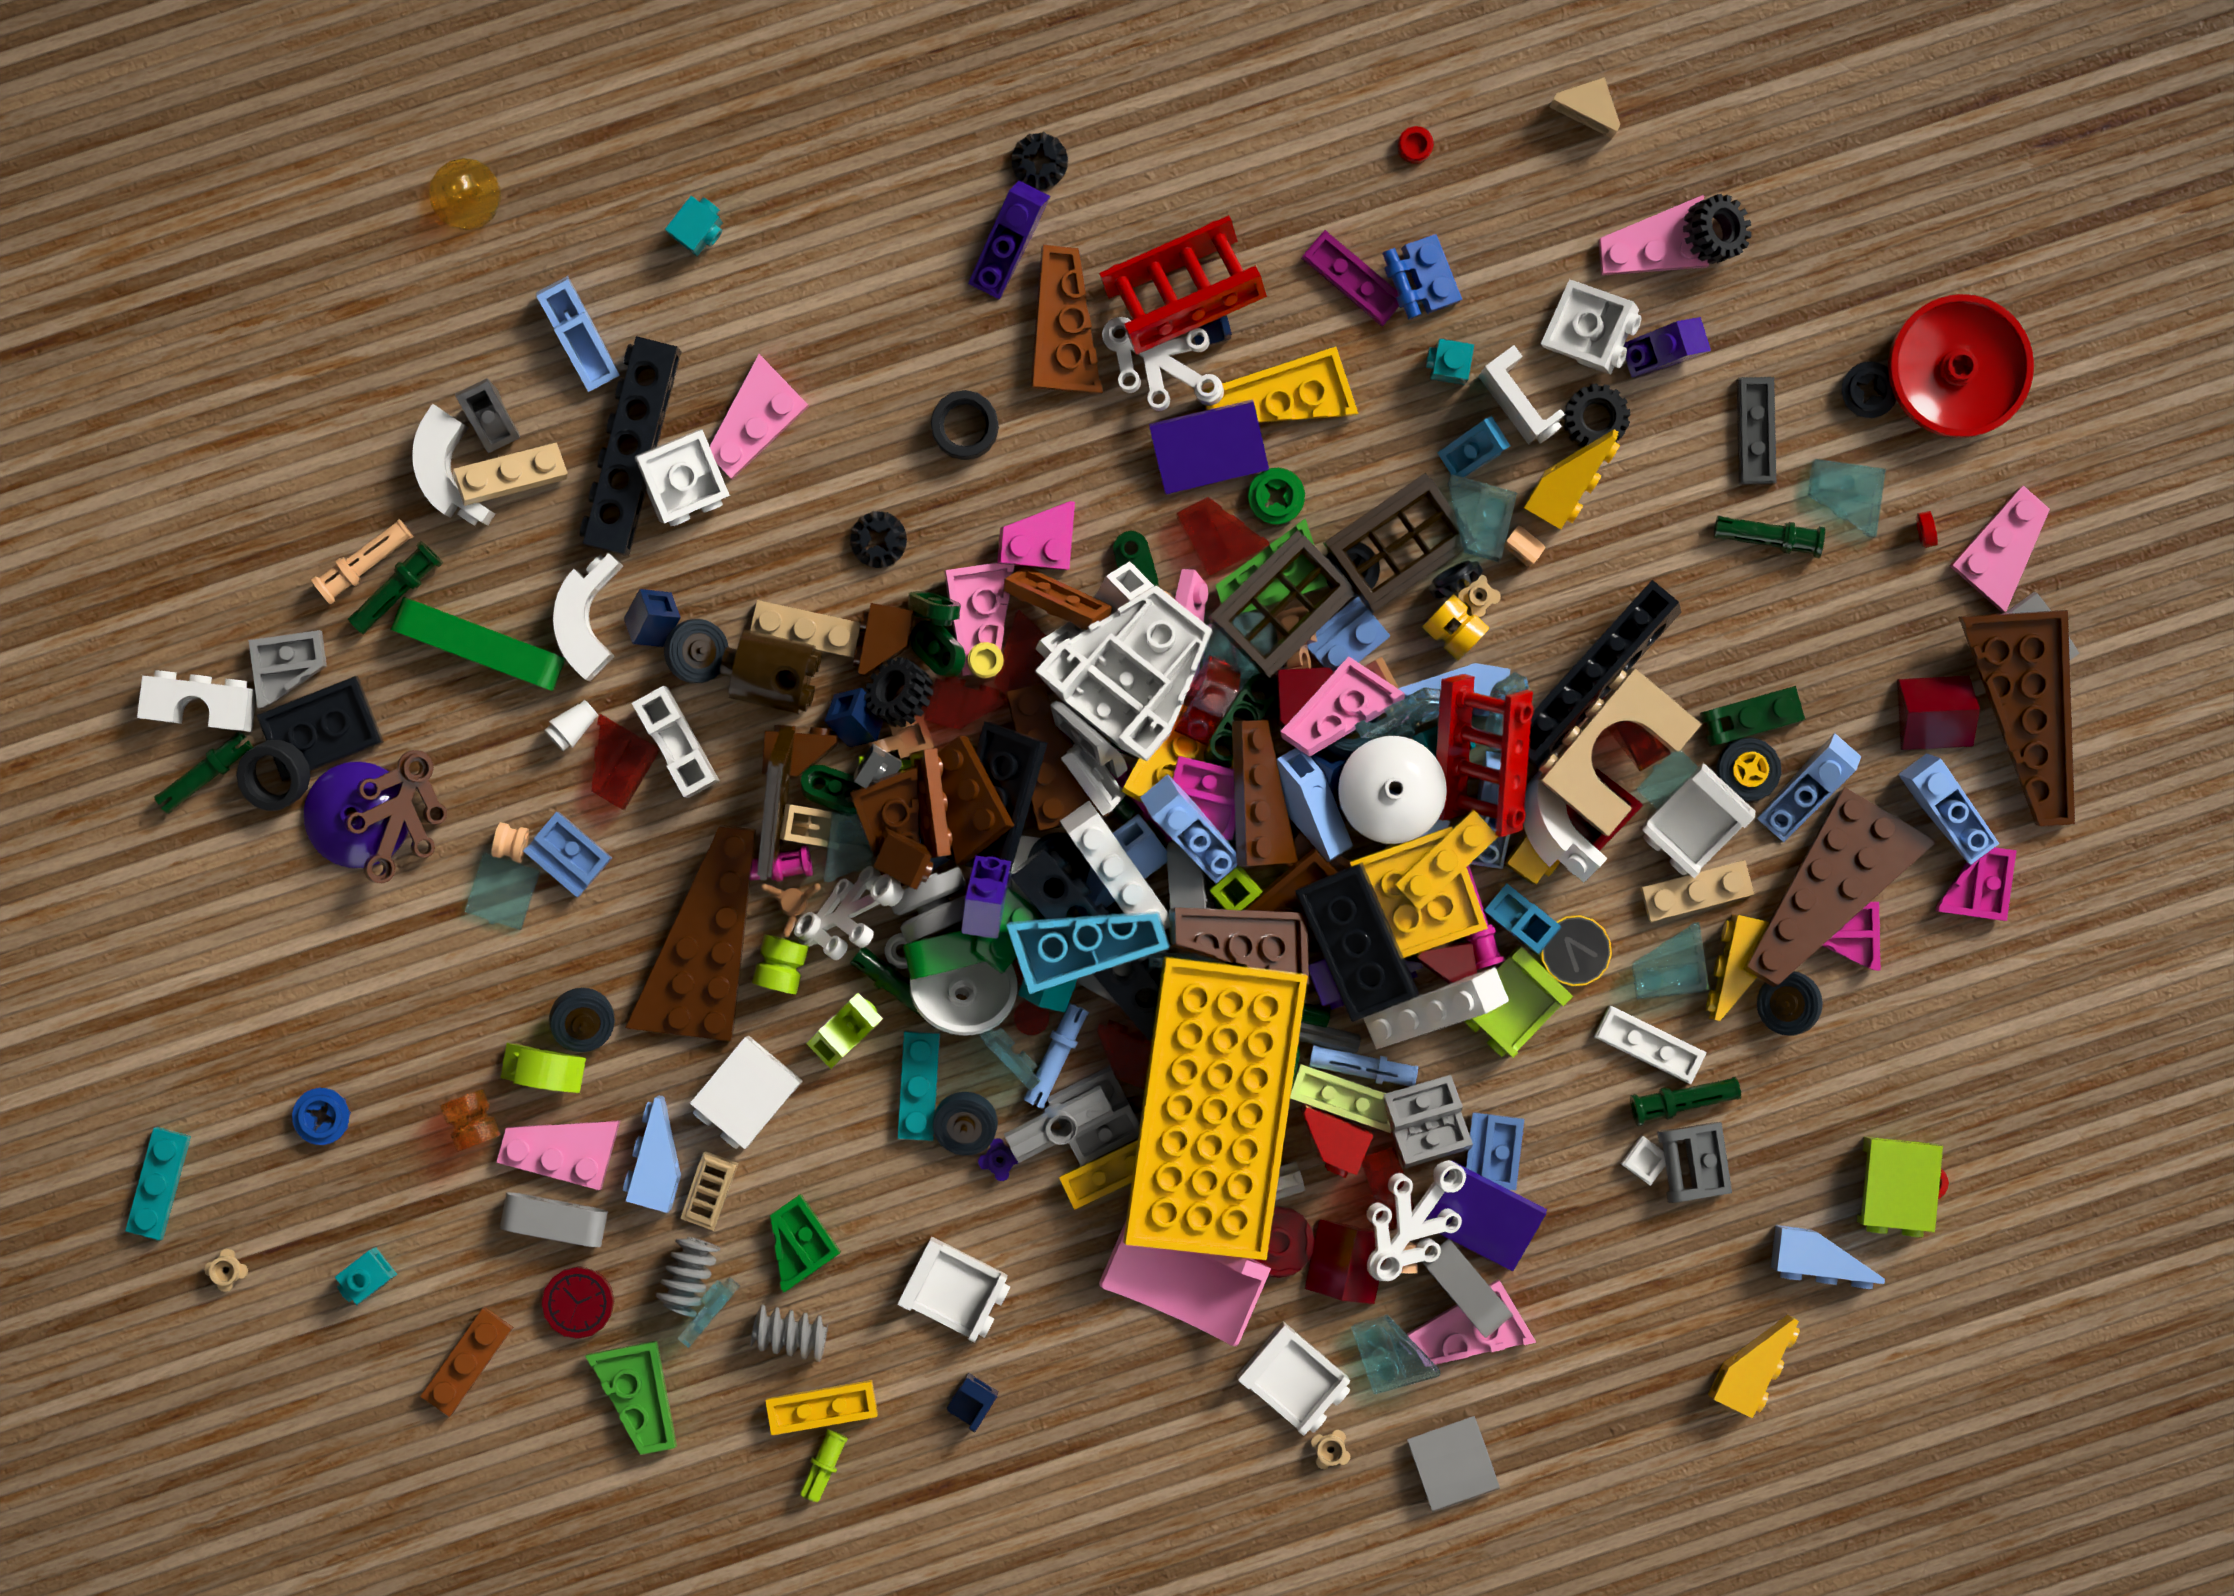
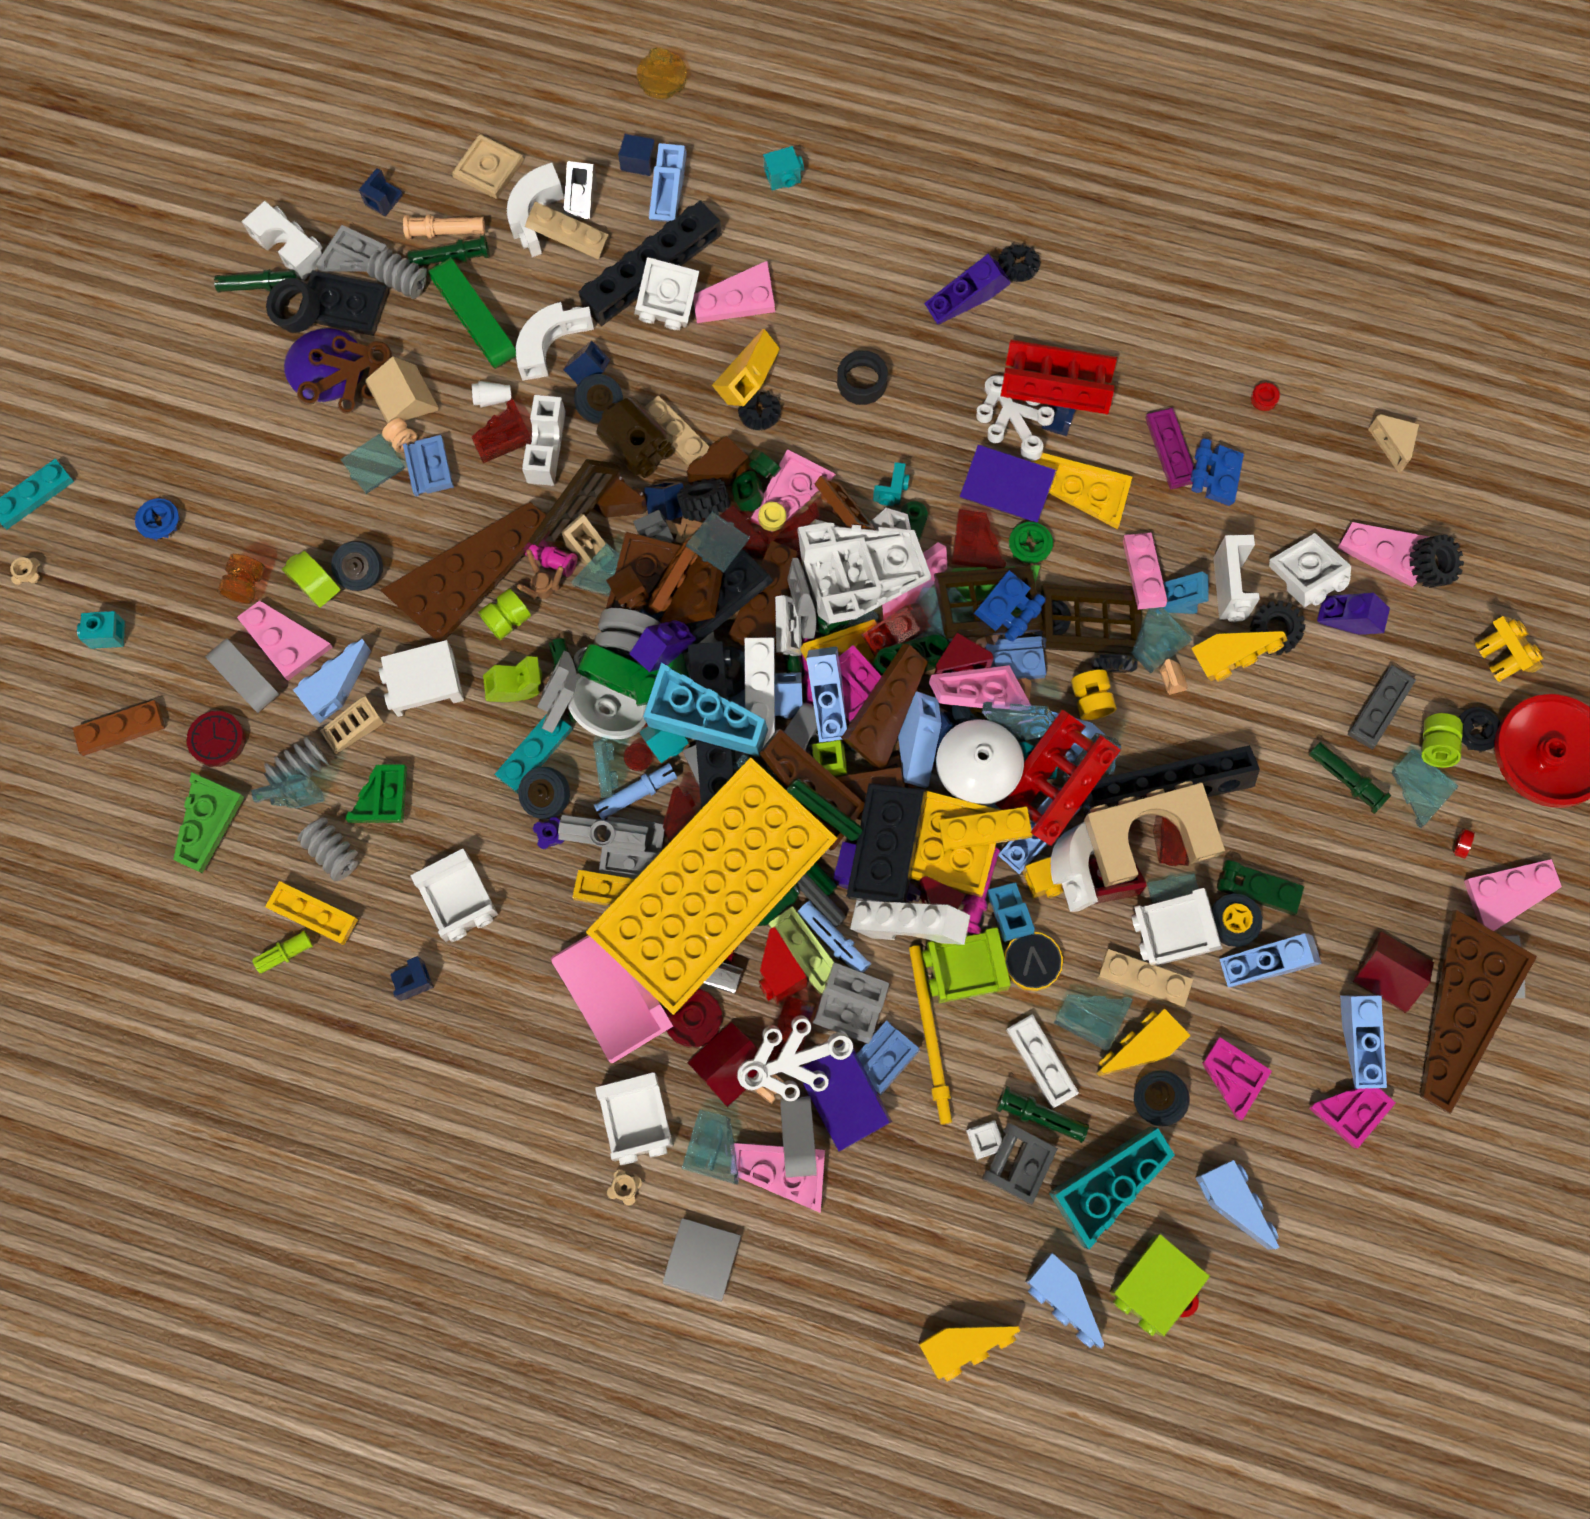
camera: 35 degrees right, 15 degrees down
(259, 569) = (379, 194): none -> dark blue panel
(352, 448) = (488, 166): none -> tan tile
(359, 656) = (397, 272): none -> light grey piece
(474, 792) = (400, 391): none -> tan slope
(516, 321) = (636, 154): none -> dark blue panel
(813, 927) = (542, 607): white plant -> none
(836, 788) = (614, 527): dark green plate -> none
(837, 507) = (747, 371): none -> yellow slope
(906, 1012) = (558, 691): none -> light grey slope
(954, 736) = (717, 542): none -> clear light blue piece
(1039, 540) = (859, 471): dark pink wing -> none
(1063, 337) = (960, 367): dark orange wing -> none
(1091, 524) = (892, 495): none -> teal bracket
(1274, 954) = (824, 809): none -> dark green axle
(1298, 596) = (1002, 601): none -> blue plate
(1418, 448) = (1144, 571): none -> bright pink plate
(1450, 361) = (1202, 531): teal brick -> none
(1489, 596) = (1123, 695): tan plate -> none
(1571, 1144) = (940, 1091): none -> yellow bar
(1794, 1122) = (1109, 1185): none -> teal wedge
(1840, 431) = (1442, 740): none -> lime wheel
(1844, 869) = (1256, 1032): reddish brown wing -> none
(1853, 269) = (1513, 635): none -> yellow plate
(1914, 1053) = (1230, 1196): none -> light blue slope

